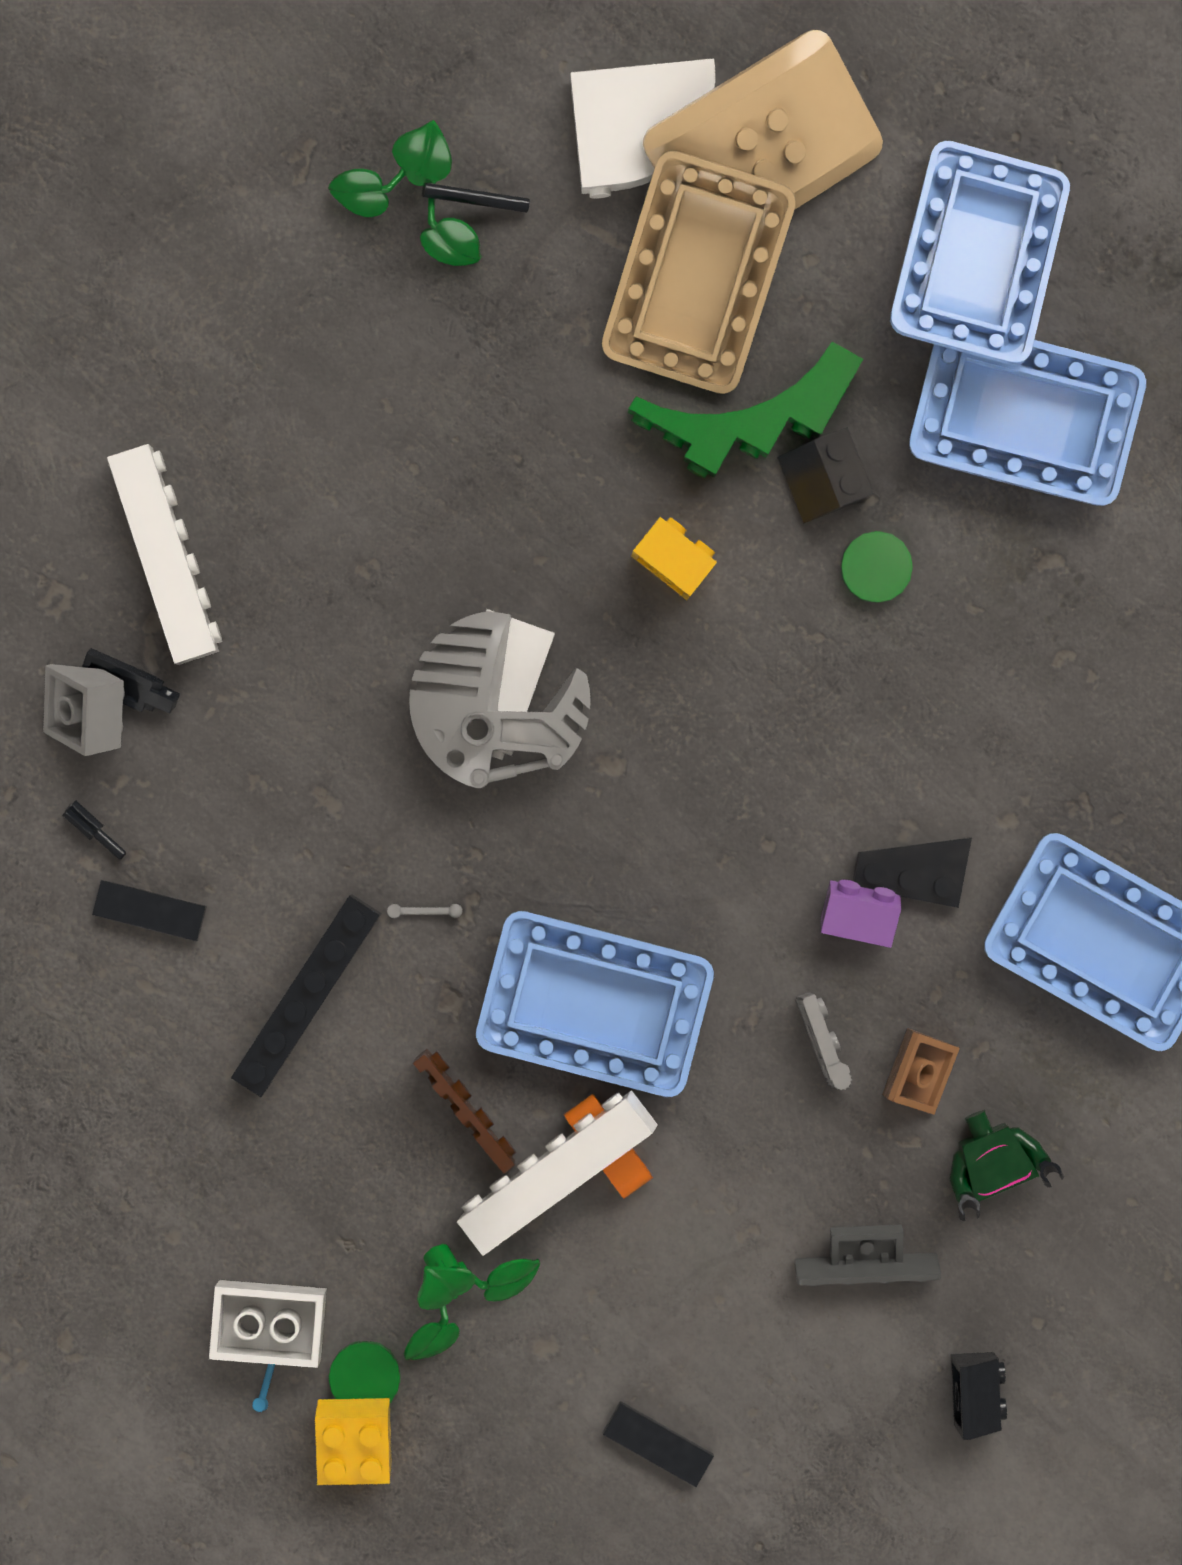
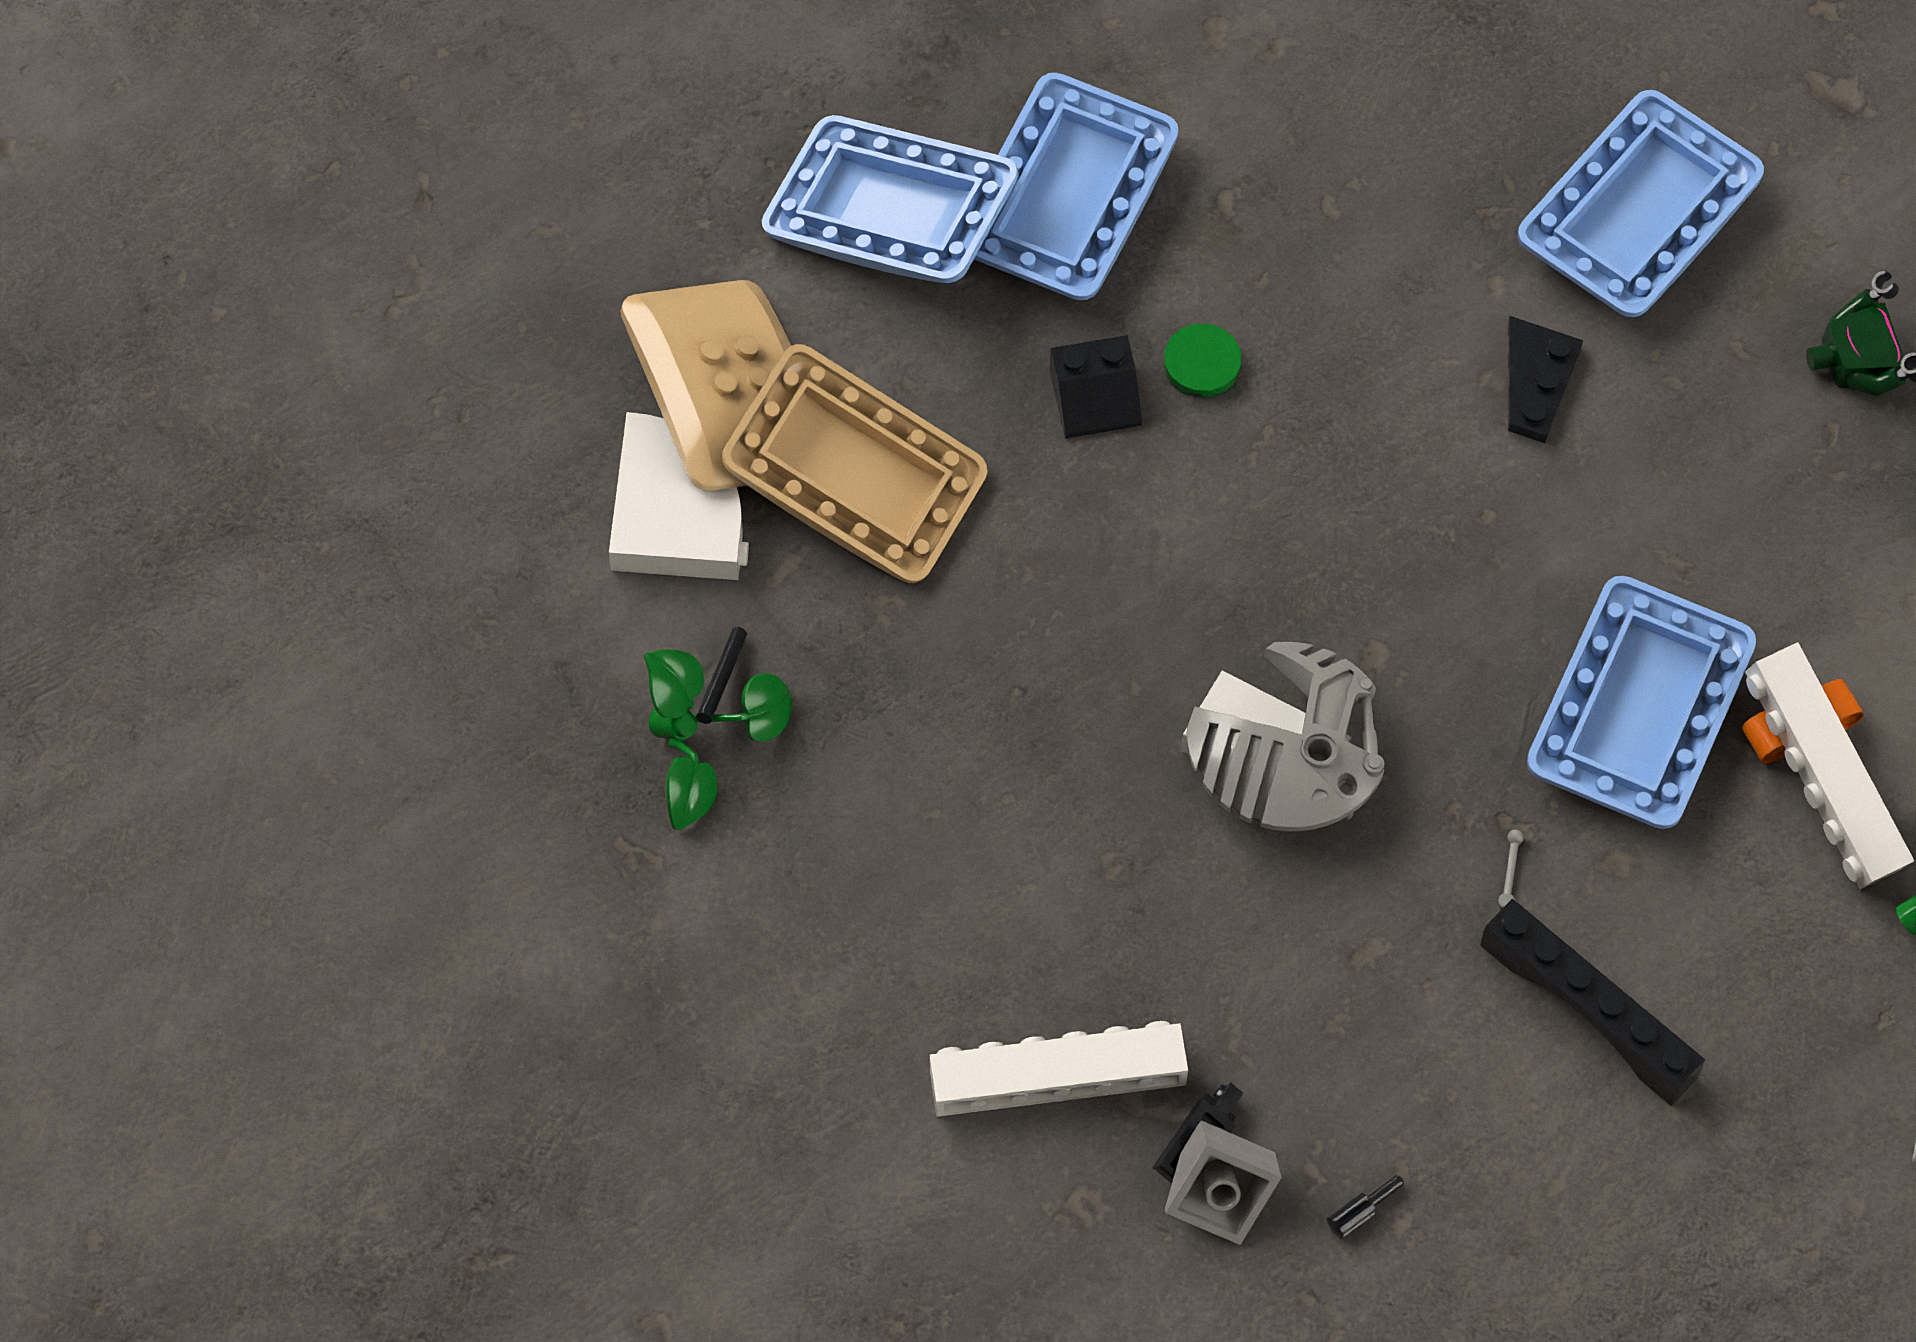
camera: 75 degrees left, 25 degrees down
(149, 910) = (1467, 1162): black tile -> none
(498, 1149) = (1726, 864): reddish brown wing -> none
(674, 557) = (1160, 538): yellow brick -> none
(711, 436) = (1018, 397): green arch -> none
(824, 1042) = (1711, 491): light grey hinge -> none
(861, 913) = (1577, 428): medium lavender brick -> none
(920, 1071) = (1754, 408): medium nougat slope -> none

